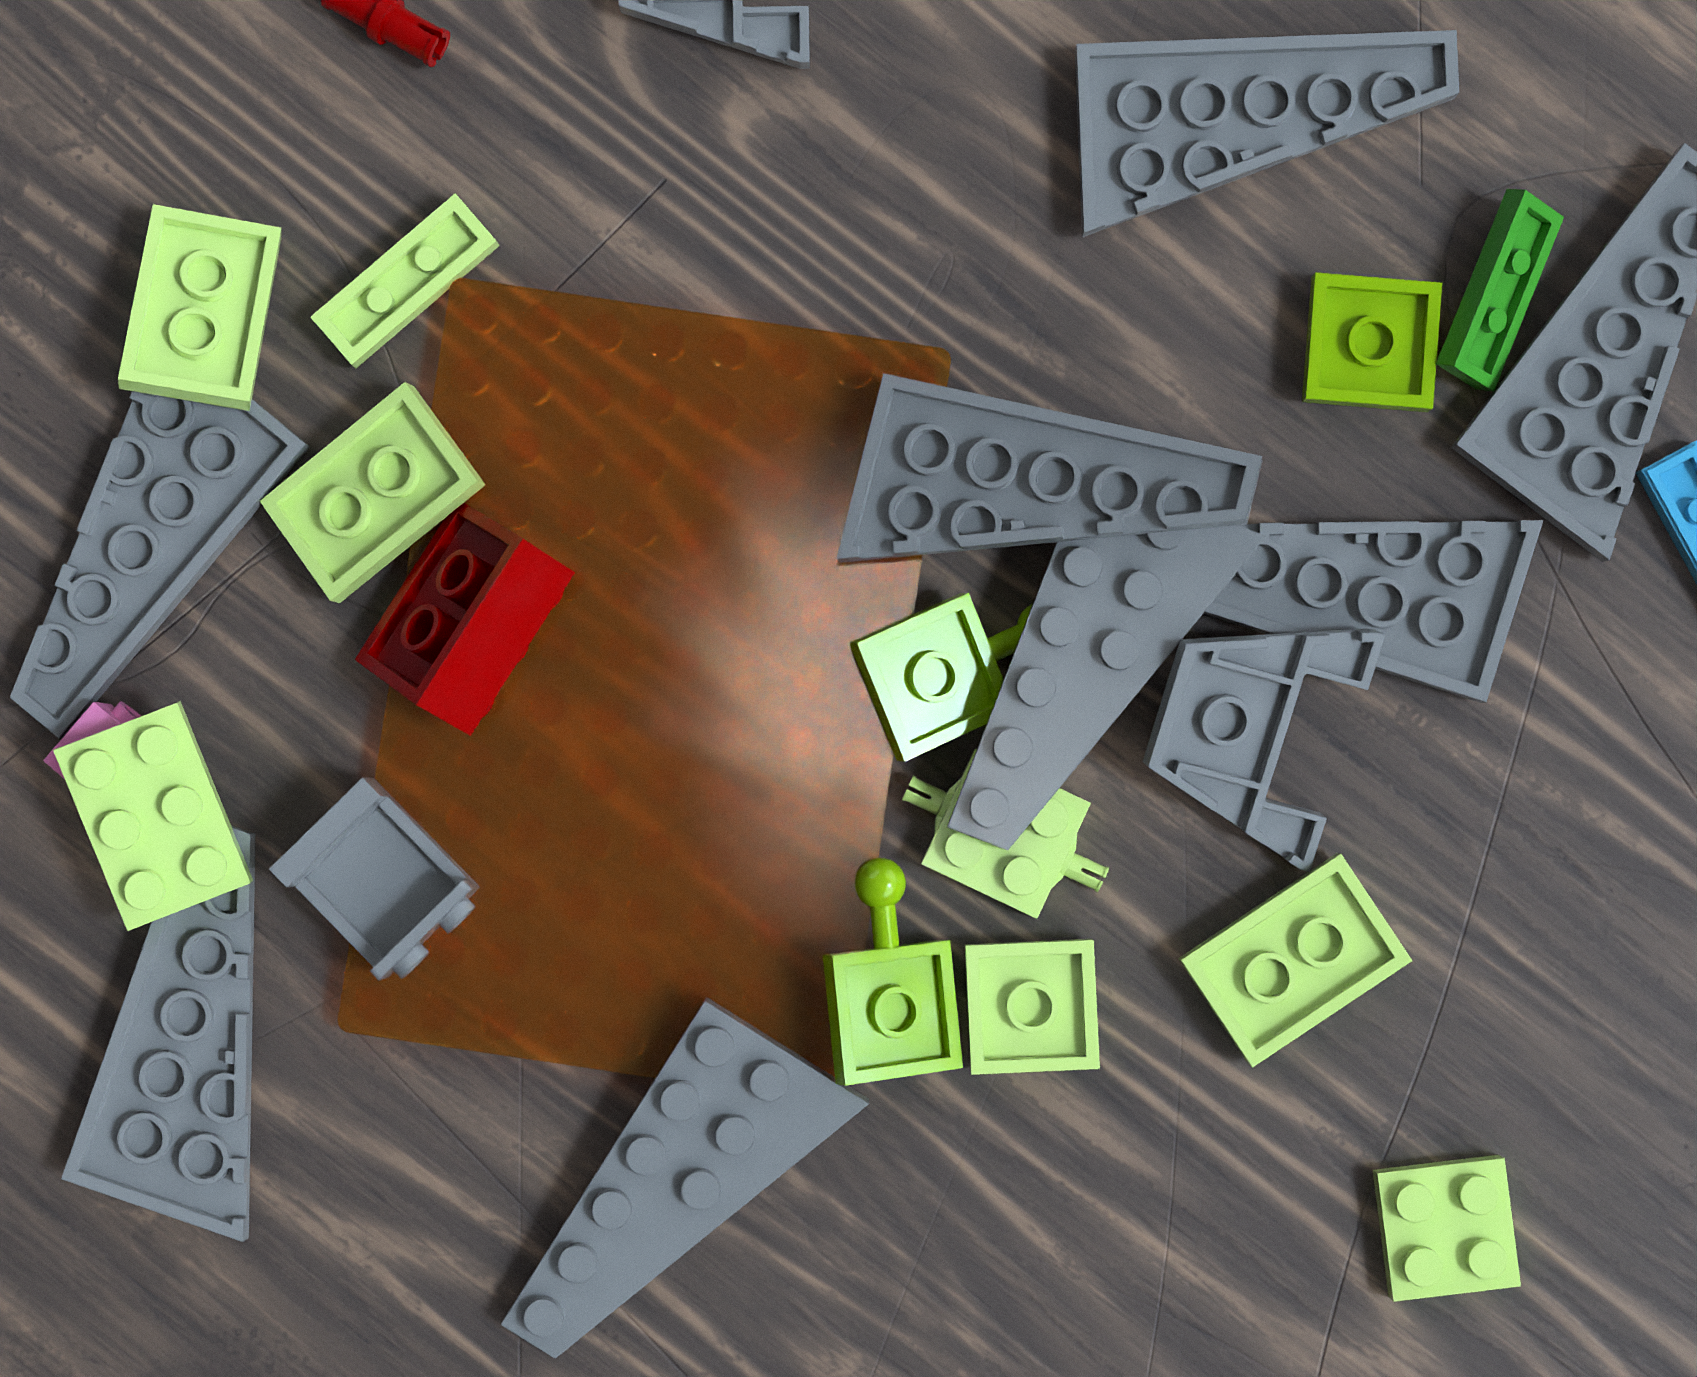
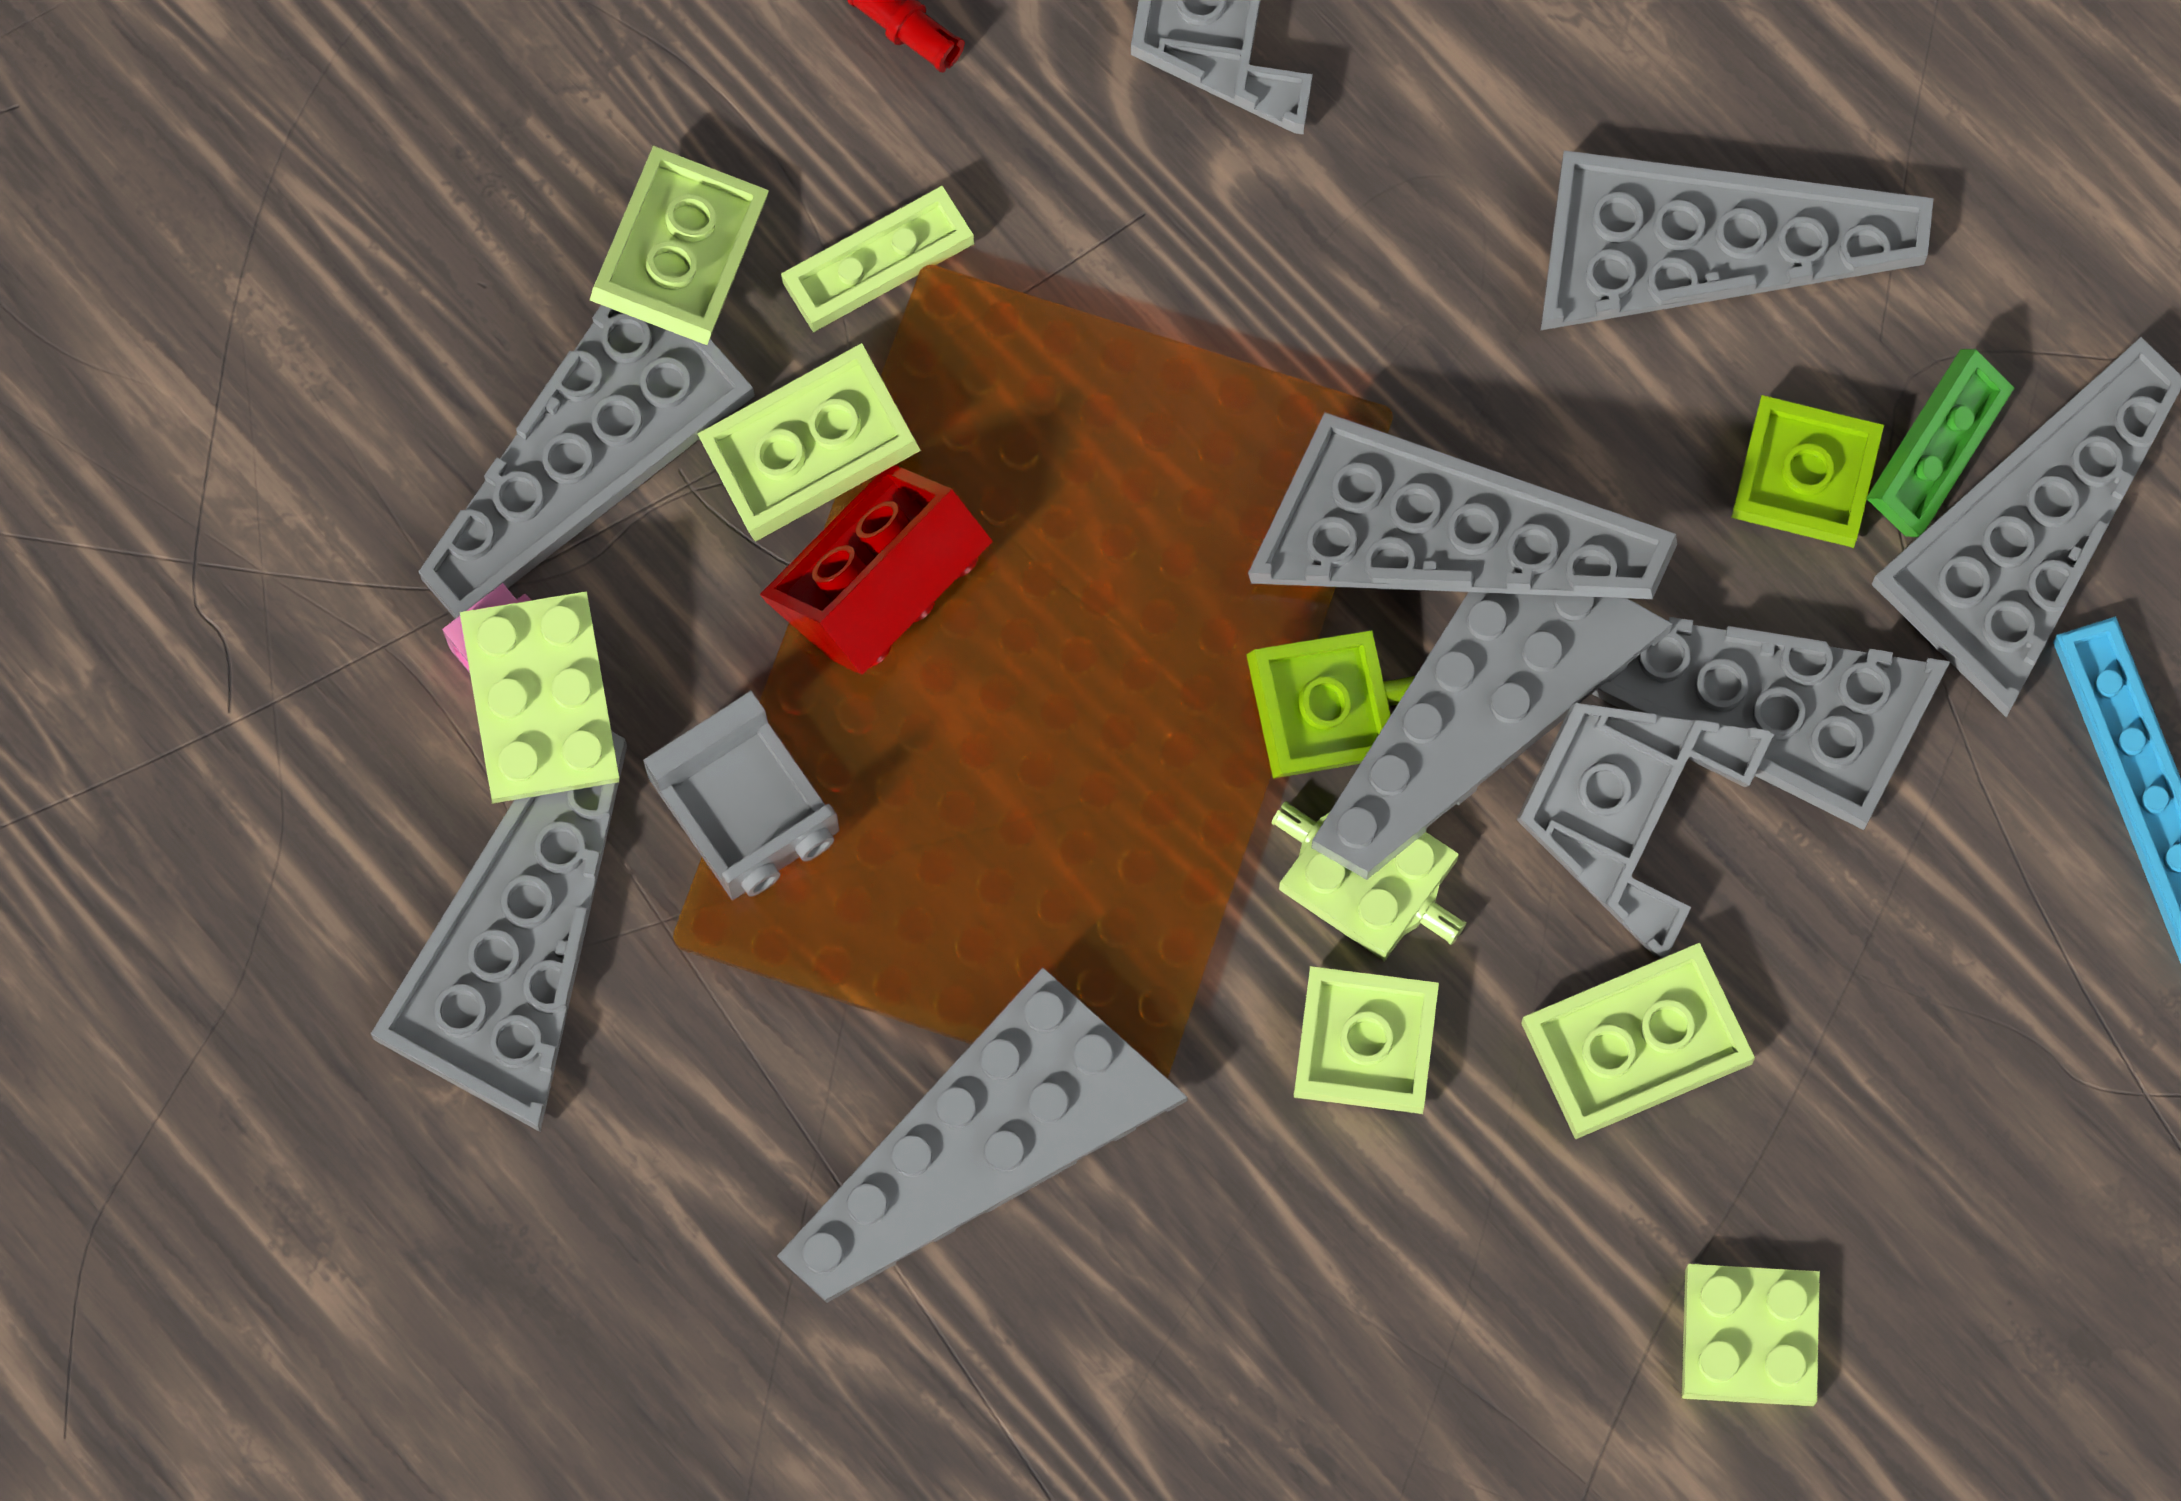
camera: 10 degrees right, 15 degrees down
(894, 1002) = (1228, 1006): lime plate -> none

